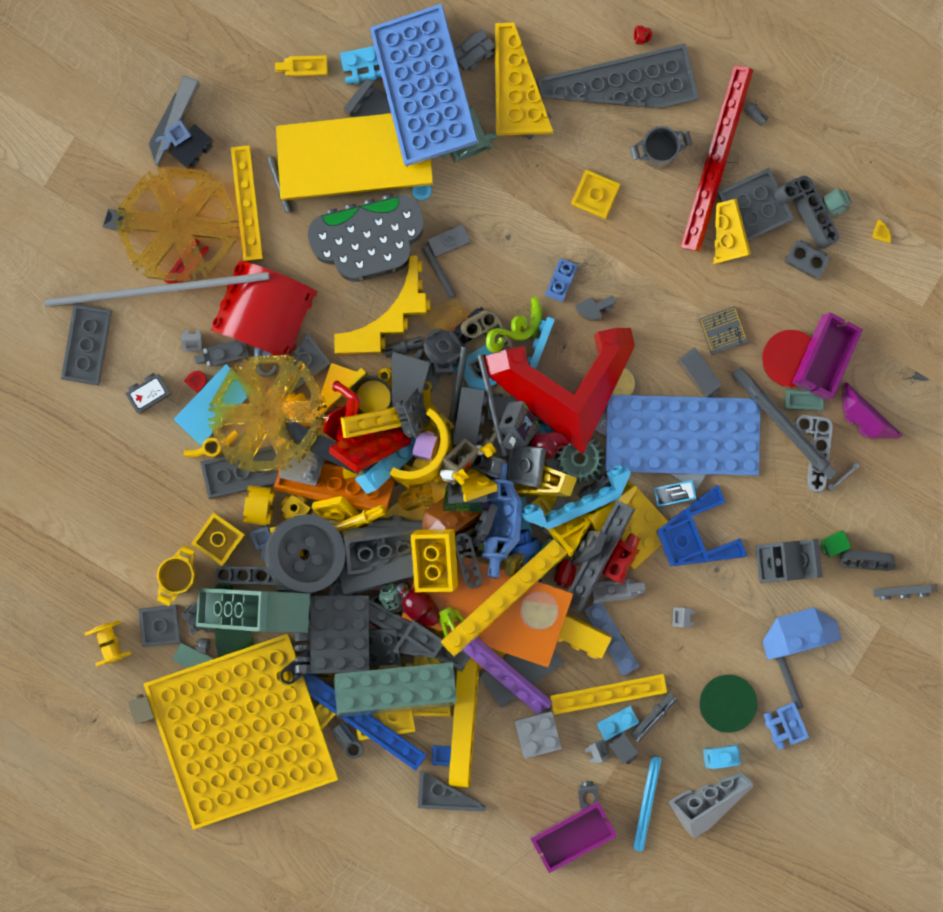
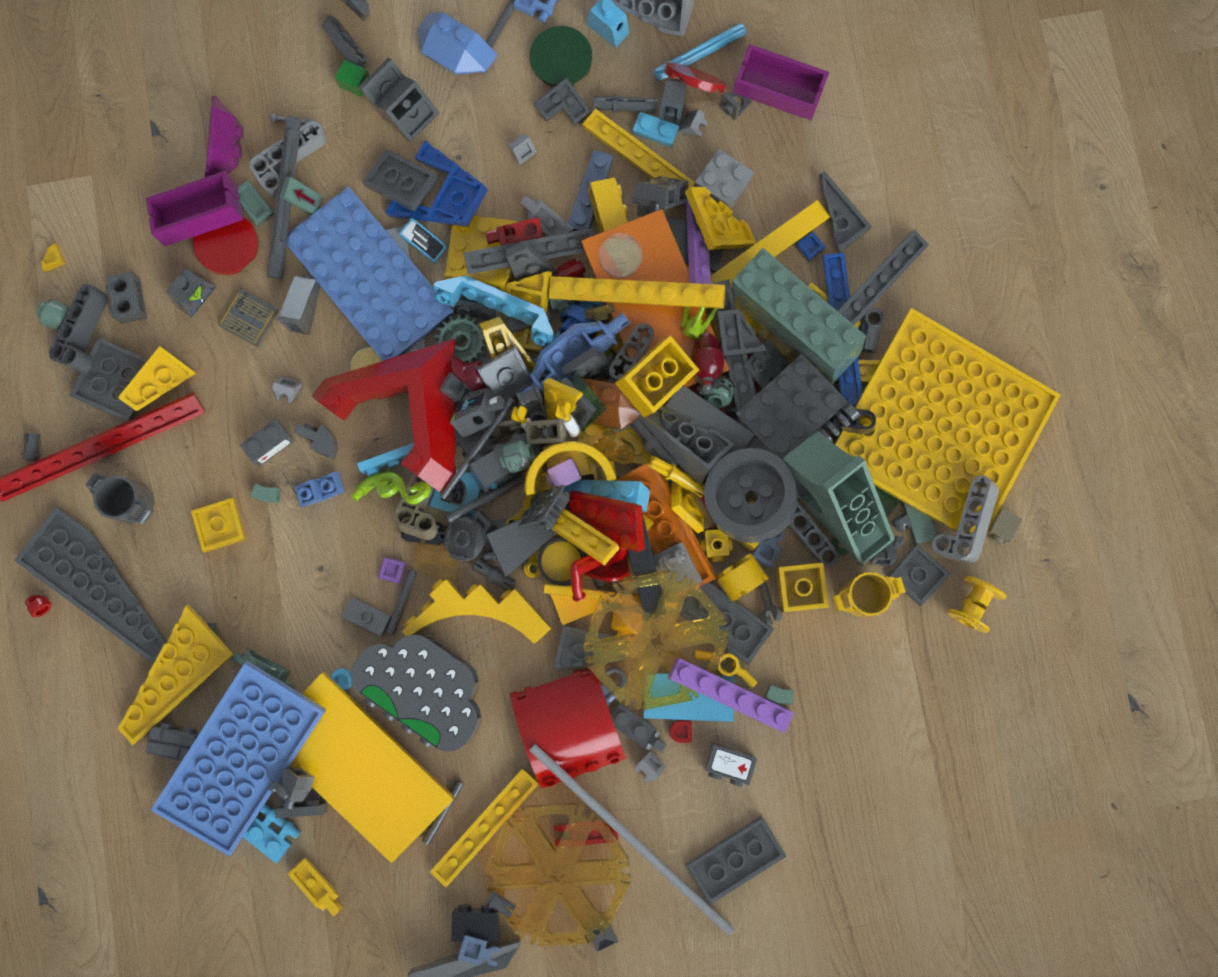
camera: 130 degrees left, 5 degrees down
(163, 464) = (779, 695): none -> sand green piece
(174, 711) = (981, 492): none -> light grey beam
(190, 431) = (730, 695): none -> medium lavender plate
(192, 172) = (498, 902): none -> dark grey pin
(224, 507) = (769, 608): none -> dark grey bar
(375, 105) = (294, 786): none -> dark grey piece
(375, 778) = (883, 277): none -> dark grey plate
(461, 424) = (517, 456): none -> sand green head
(465, 282) = (392, 570): none -> medium lavender tile
(509, 702) = (717, 223): none -> yellow plate
(548, 424) = (453, 387): none -> dark grey tile
(564, 681) = (659, 194): none -> dark grey hips
(588, 242) = (265, 494): none -> sand green piece
(622, 271) = (267, 442): none -> dark grey brick
(626, 777) = (695, 77): none -> red tile
(650, 316) = (288, 387): none -> light grey tile
(695, 678) = (563, 98): none -> dark grey tile
(730, 513) = (400, 180): none -> dark grey plate
(773, 307) = (190, 291): none -> dark grey torso
(776, 435) = (300, 195): none -> sand green tile

